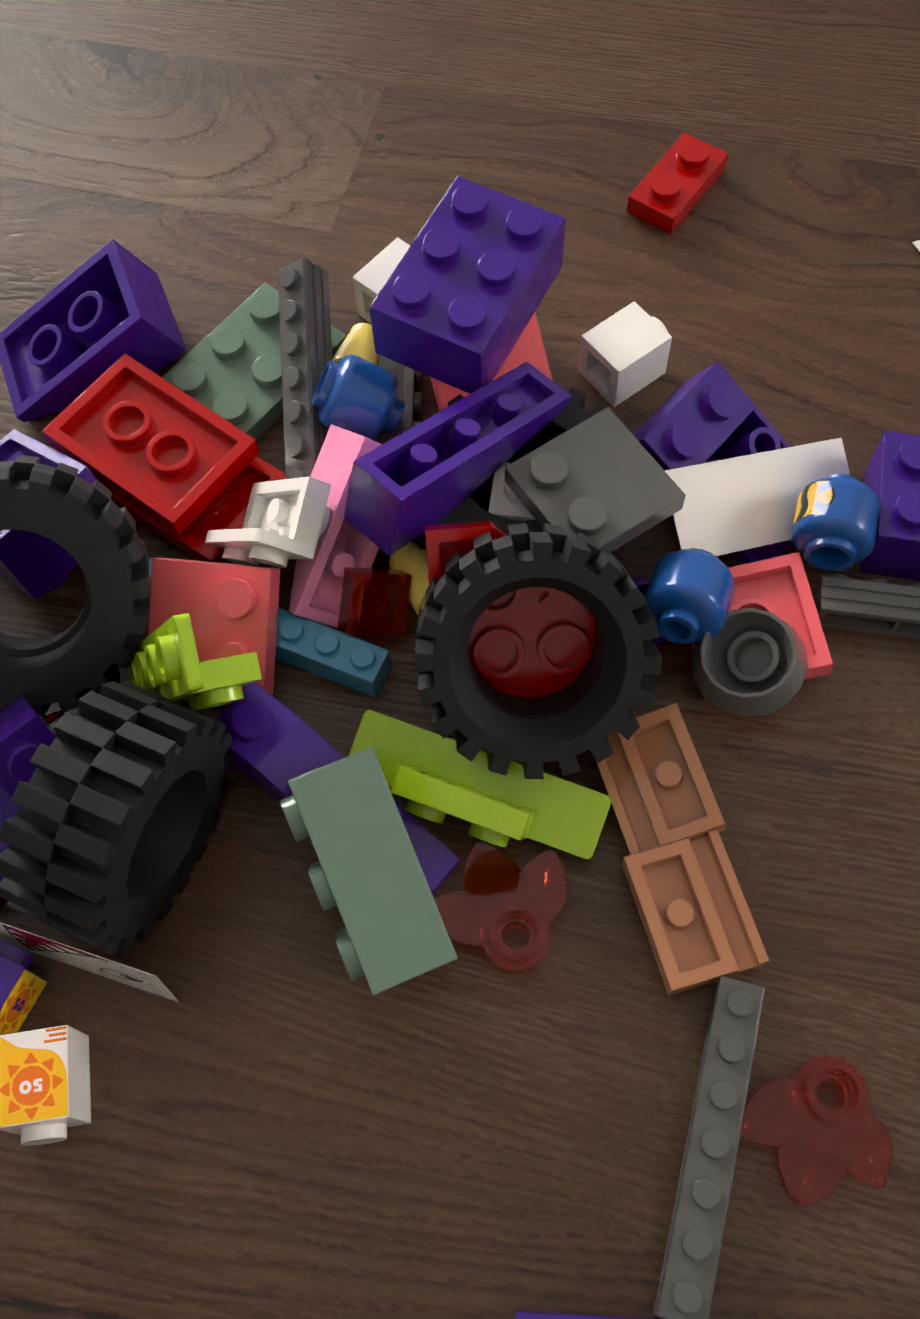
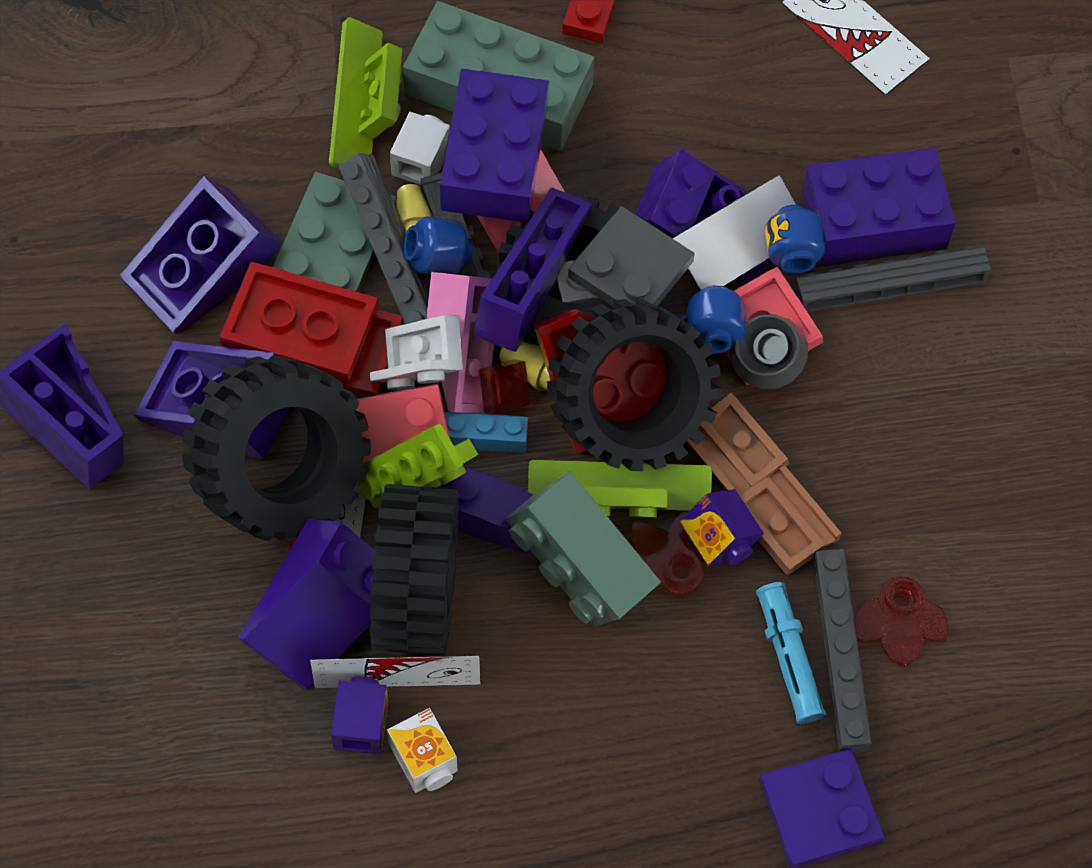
camera: 25 degrees left, 0 degrees up
(360, 207) = (364, 90): none -> lime bracket
(594, 895) = (722, 528): none -> dark purple brick
(600, 243) = (469, 41): none -> sand green brick
(624, 353) = (607, 154): white brick -> none
(631, 1125) = (785, 635): none -> medium azure pin

